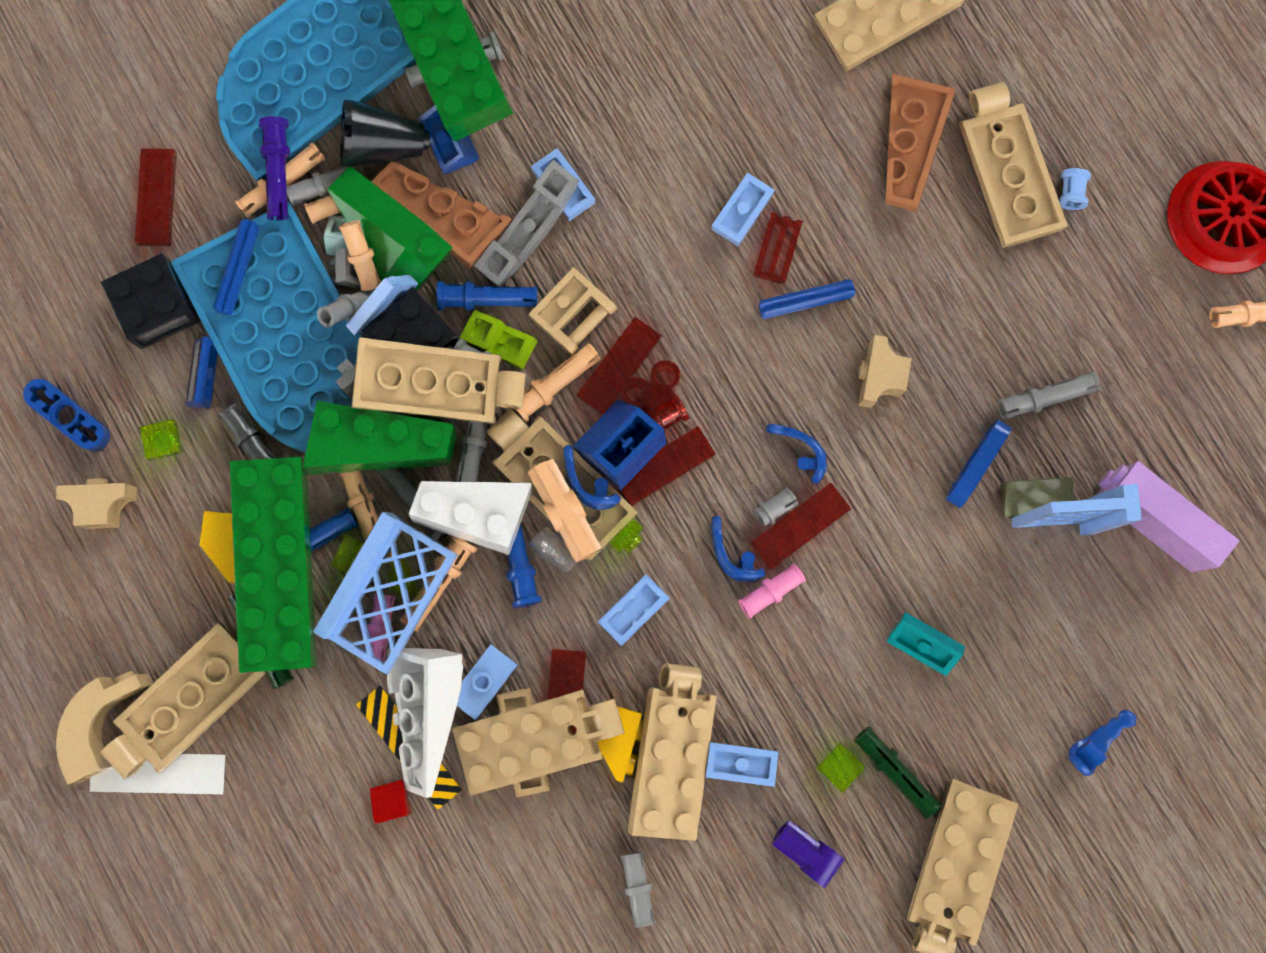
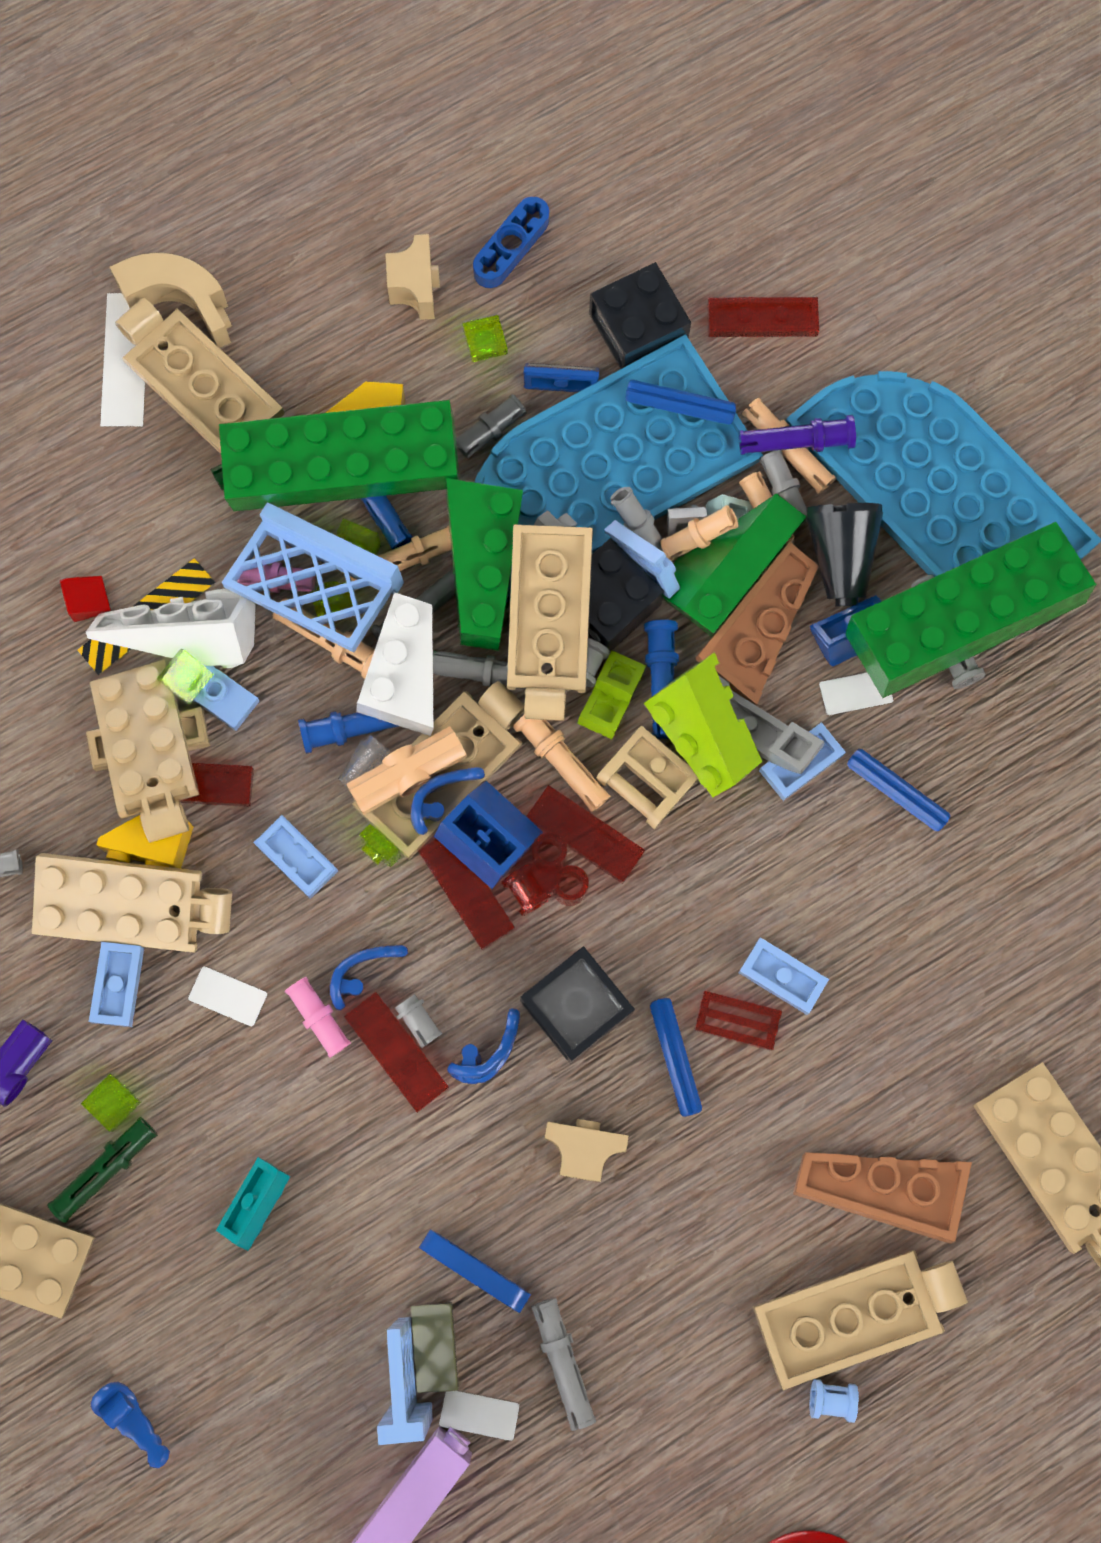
camera: 85 degrees right, 5 degrees down
(471, 706) = (185, 676): none -> clear neon green plate
(503, 143) = (851, 694): none -> white sticker
(533, 258) = (704, 727): none -> lime wedge
(588, 110) = (898, 790): none -> blue axle
(750, 669) = (227, 996): none -> white sticker
(767, 373) = (576, 1005): none -> piece
(1088, 462) = (479, 1415): none -> white sticker

